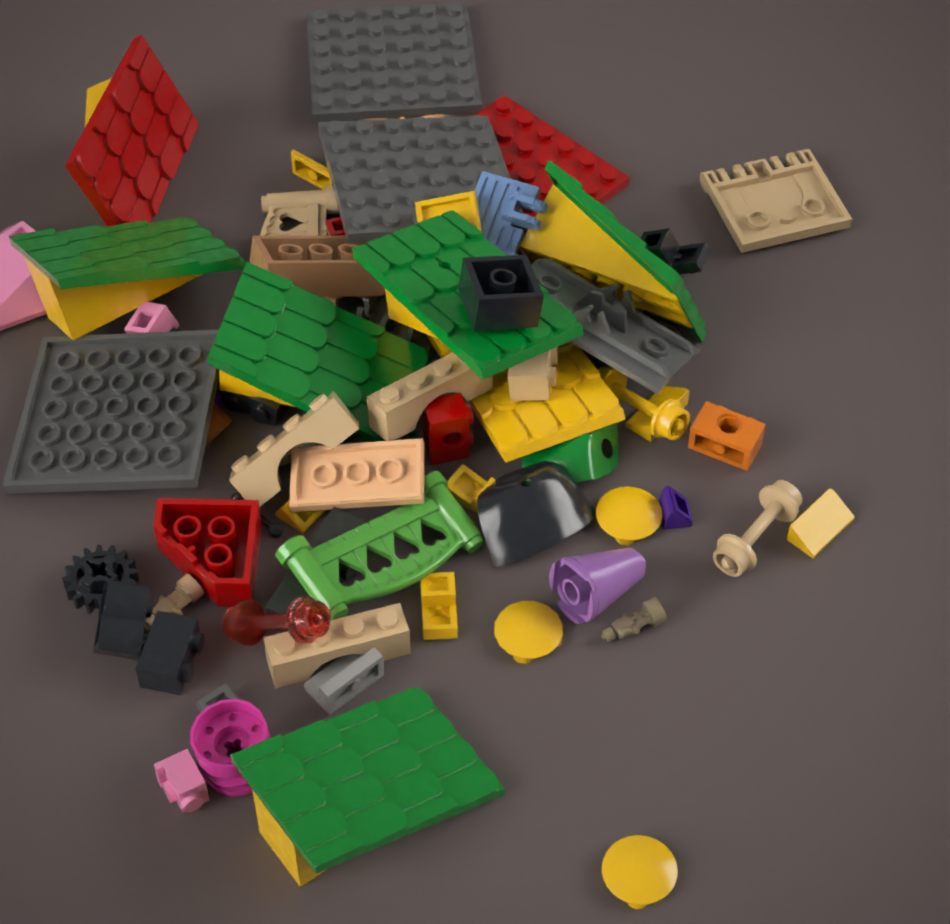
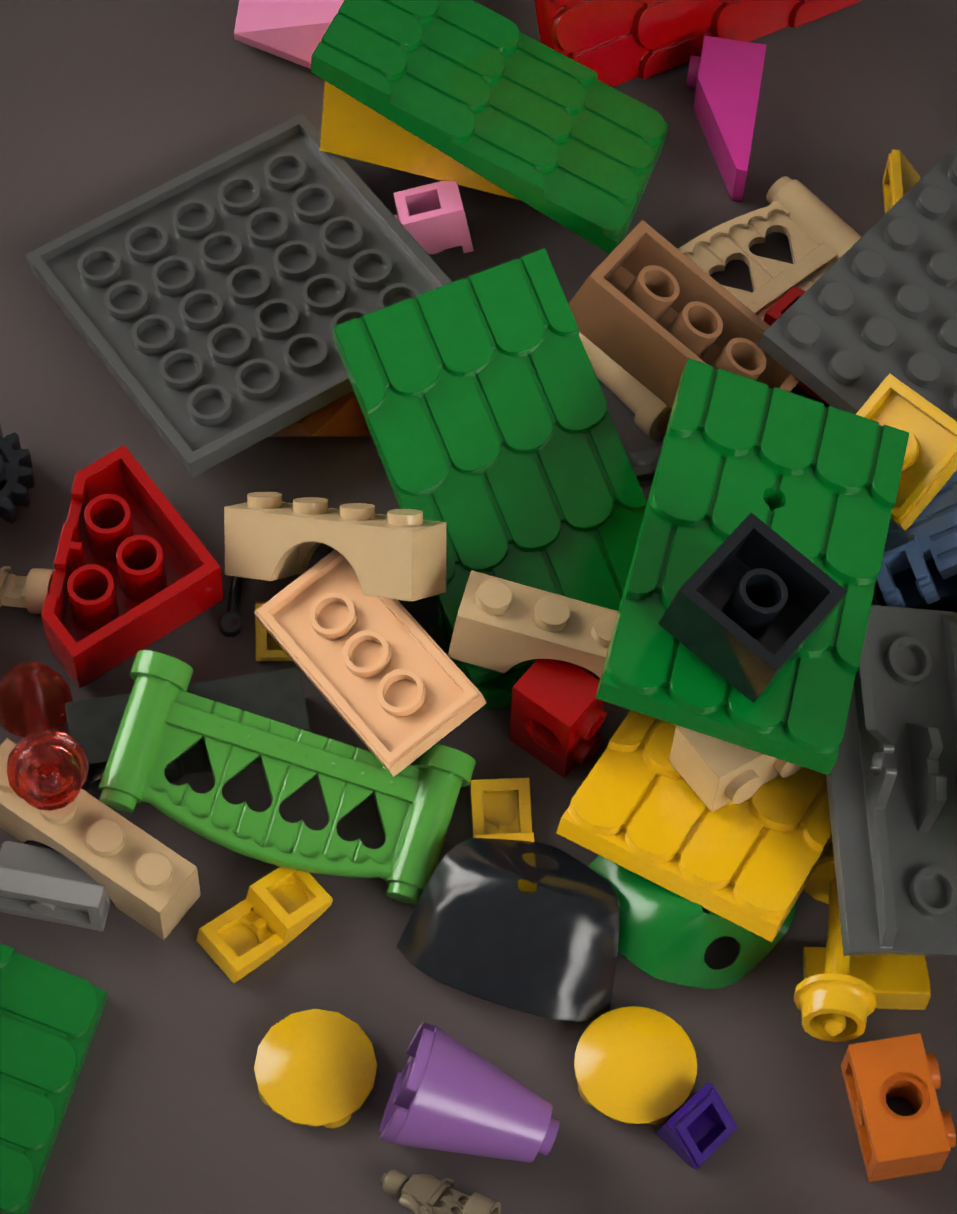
camera: 50 degrees right, 10 degrees up
(207, 194) = (726, 103): none -> dark pink slope

